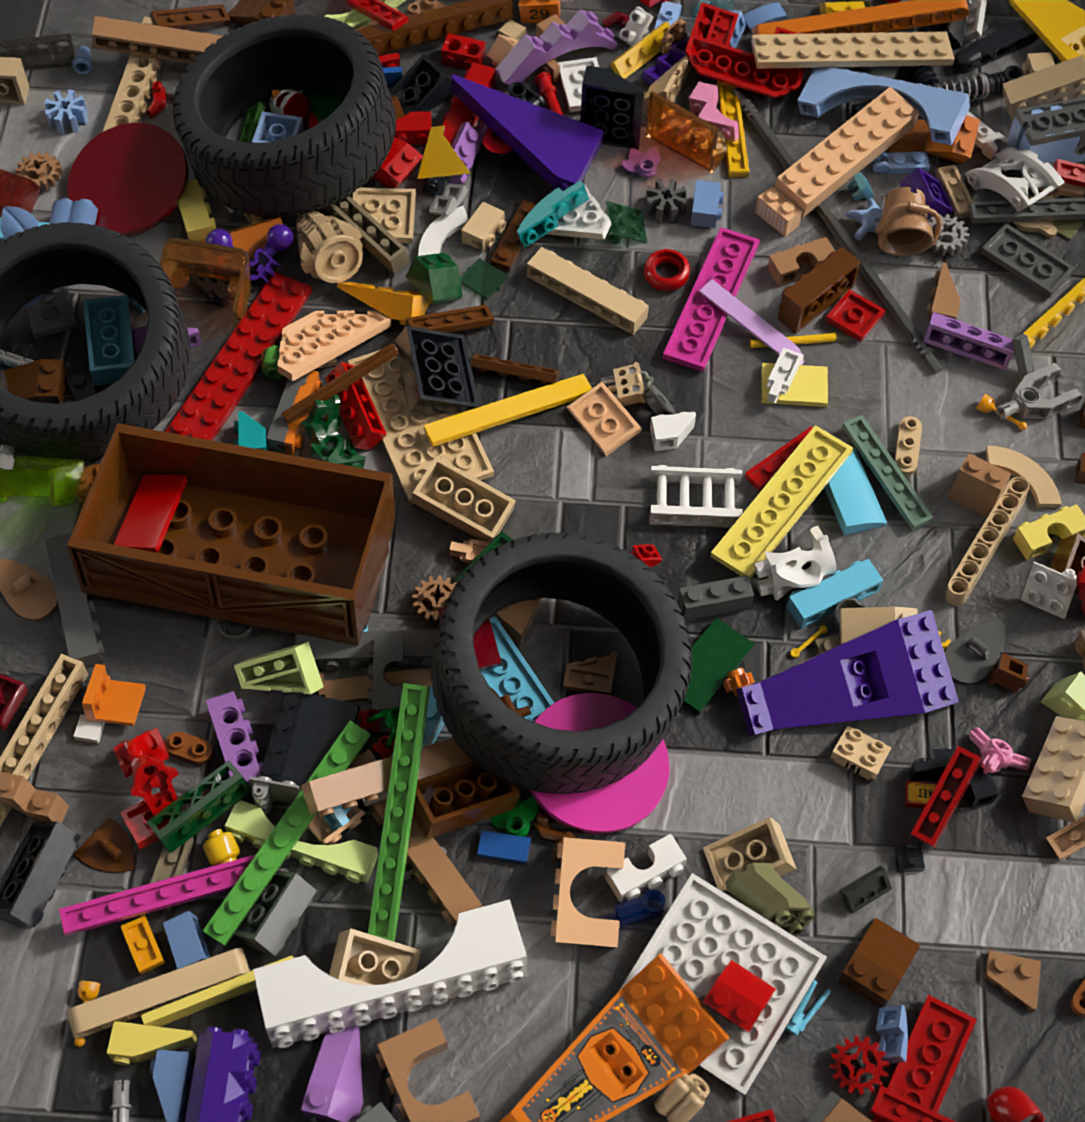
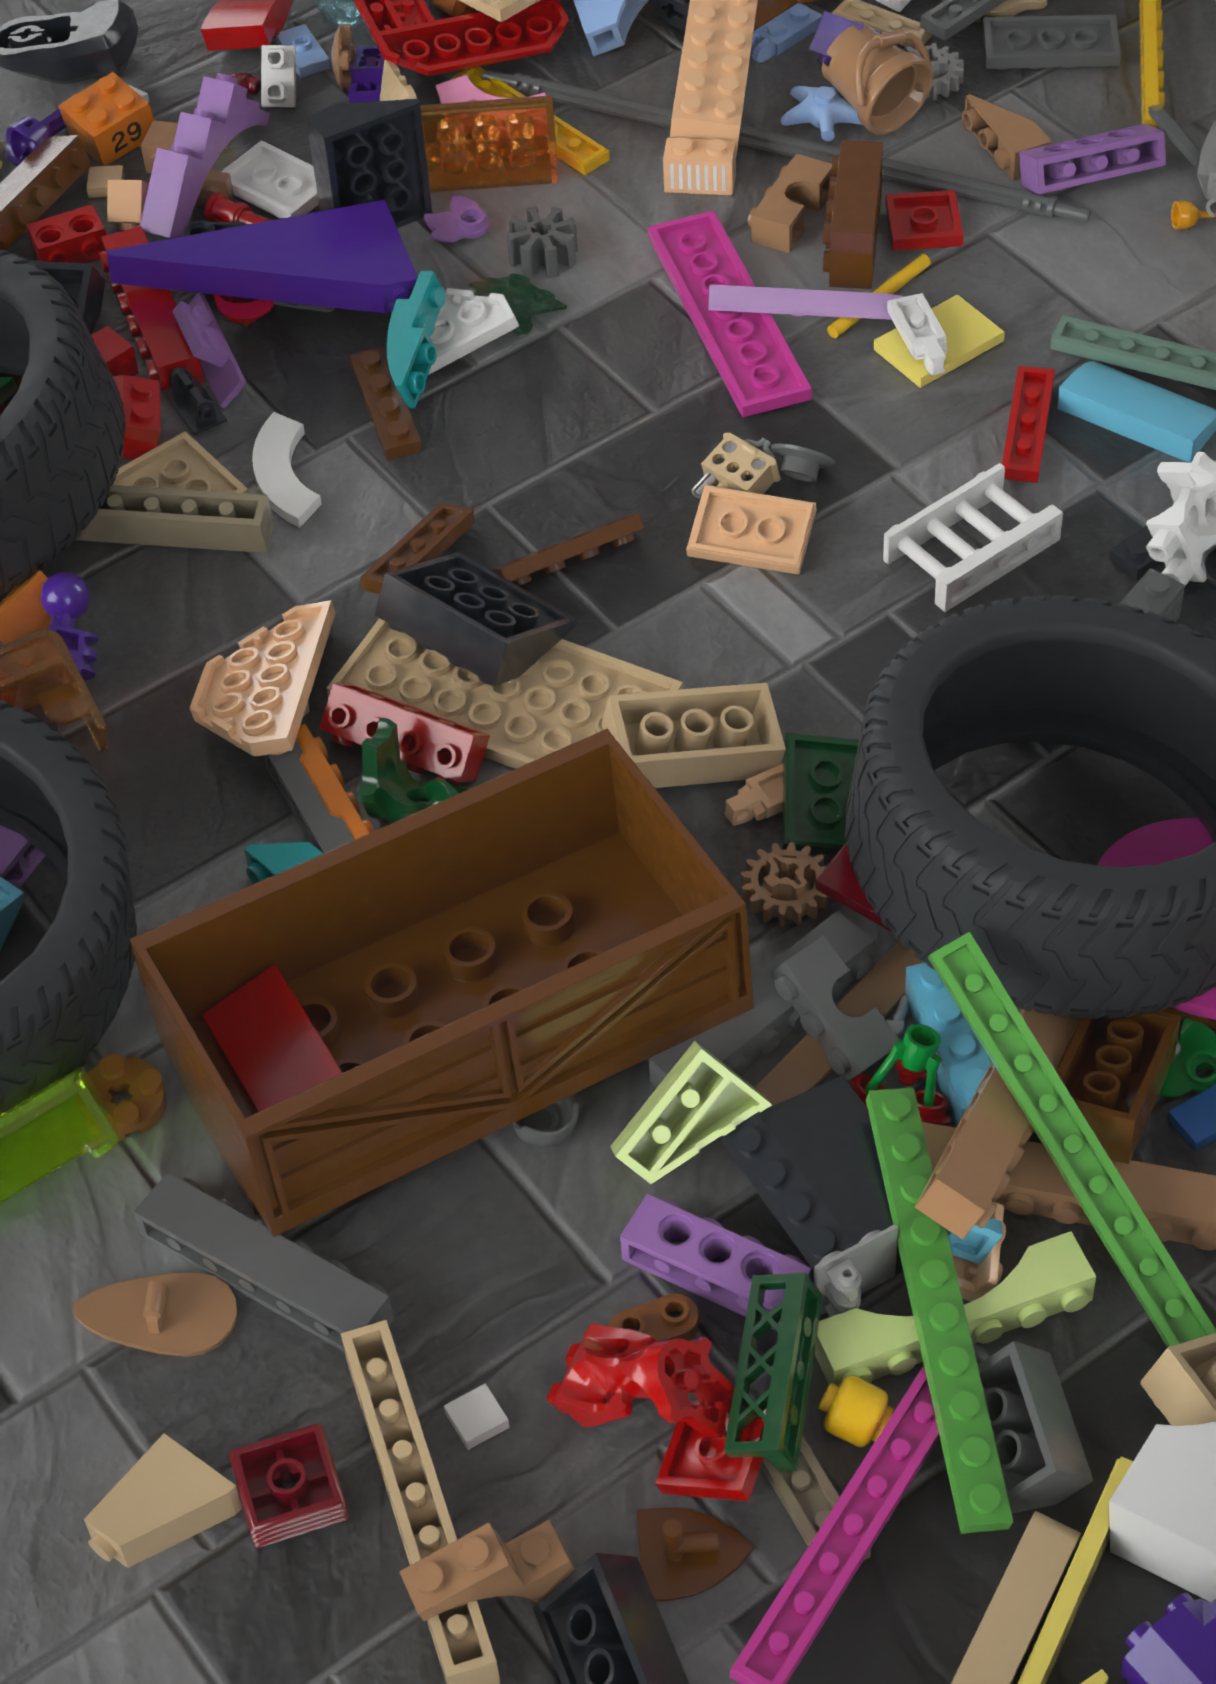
camera: 35 degrees left, 10 degrees down
(111, 699) = (474, 1346): orange bracket -> none
(142, 944) = (888, 1628): light orange plate -> none
(186, 939) = (949, 1567): medium blue hinge -> none
(240, 359) = (157, 782): red plate -> none
(269, 362) = (218, 762): bright green head -> none
(328, 247) = (146, 563): tan plant -> none
(341, 382) = (364, 708): reddish brown axle -> none
(393, 304) = (318, 577): light orange wedge -> none
(436, 277) = (340, 508): dark green slope -> none
(440, 157) = (187, 367): yellow sticker -> none
(449, 201) = (245, 416): light grey slope -> none
(483, 227) = (332, 416): tan hinge -> none
(483, 279) = (397, 480): clear green piece -> none
(506, 410) = (615, 602): yellow tile -> none
(587, 290) = (559, 401): tan brick -> none
(591, 675) = (1087, 825): medium nougat wing -> none
(640, 52) = (315, 92): yellow plate -> none
(666, 256) = (634, 297): red wheel -> none
(671, 430) = (850, 486): white slope -> none
(705, 204) = (601, 212): medium blue brick -> none
(781, 502) = (1091, 466): light yellow plate -> none
(862, 186) = (767, 79): medium azure tile -> none
(906, 452) = (1147, 313): tan plate -> none

